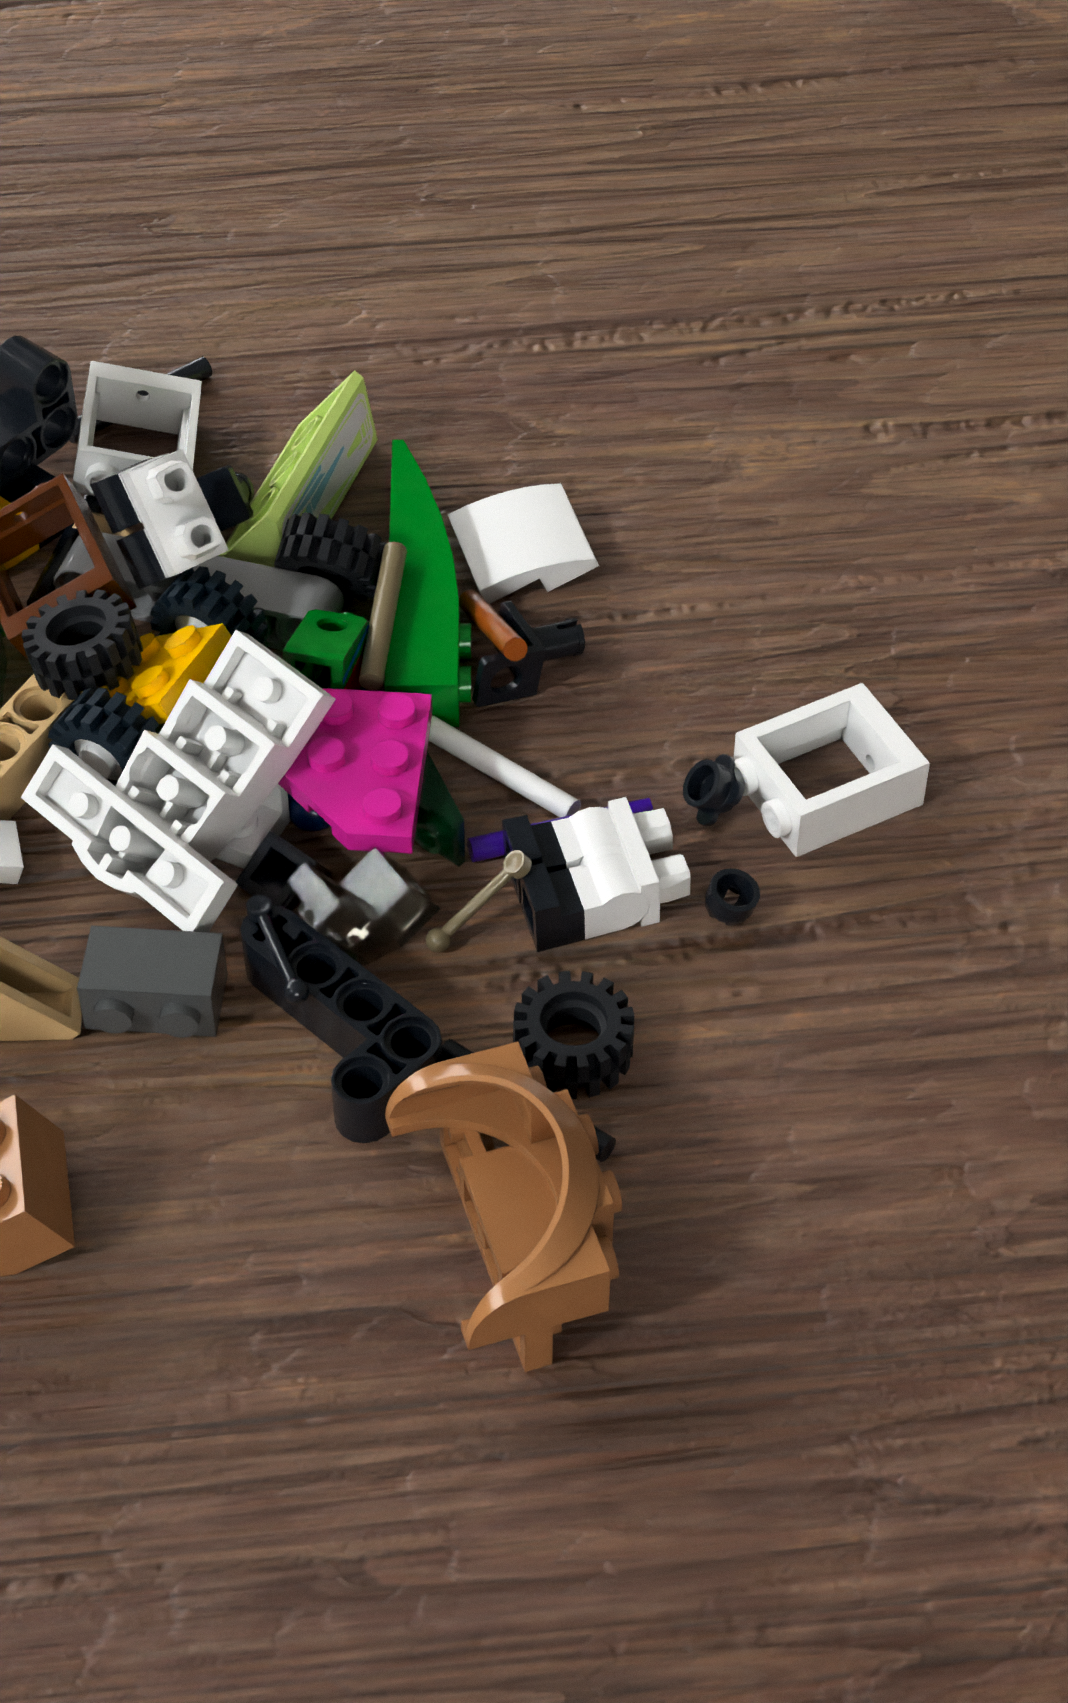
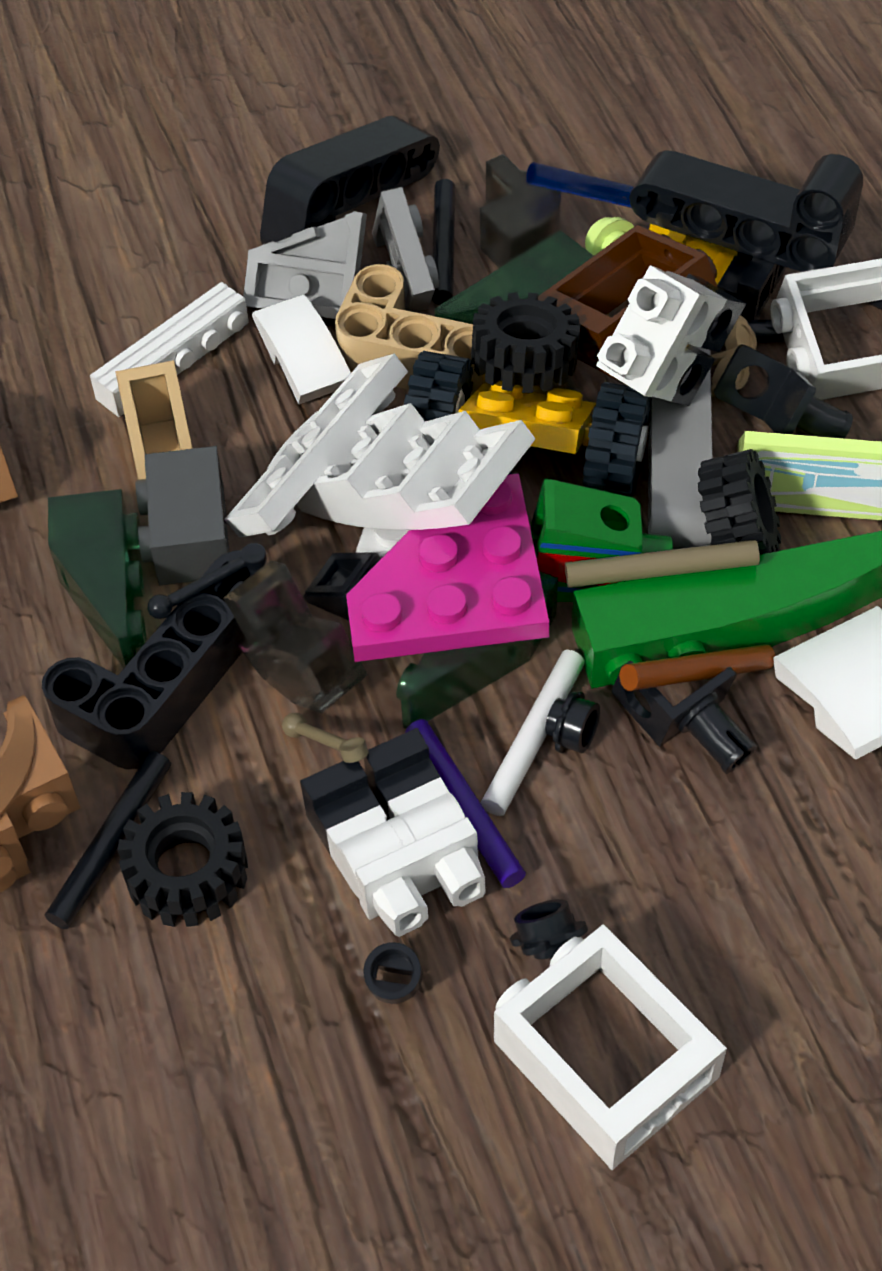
camera: 80 degrees right, 5 degrees up
(195, 1066) = (92, 554): none -> clear green slope
(507, 732) = (573, 722): none -> black plate

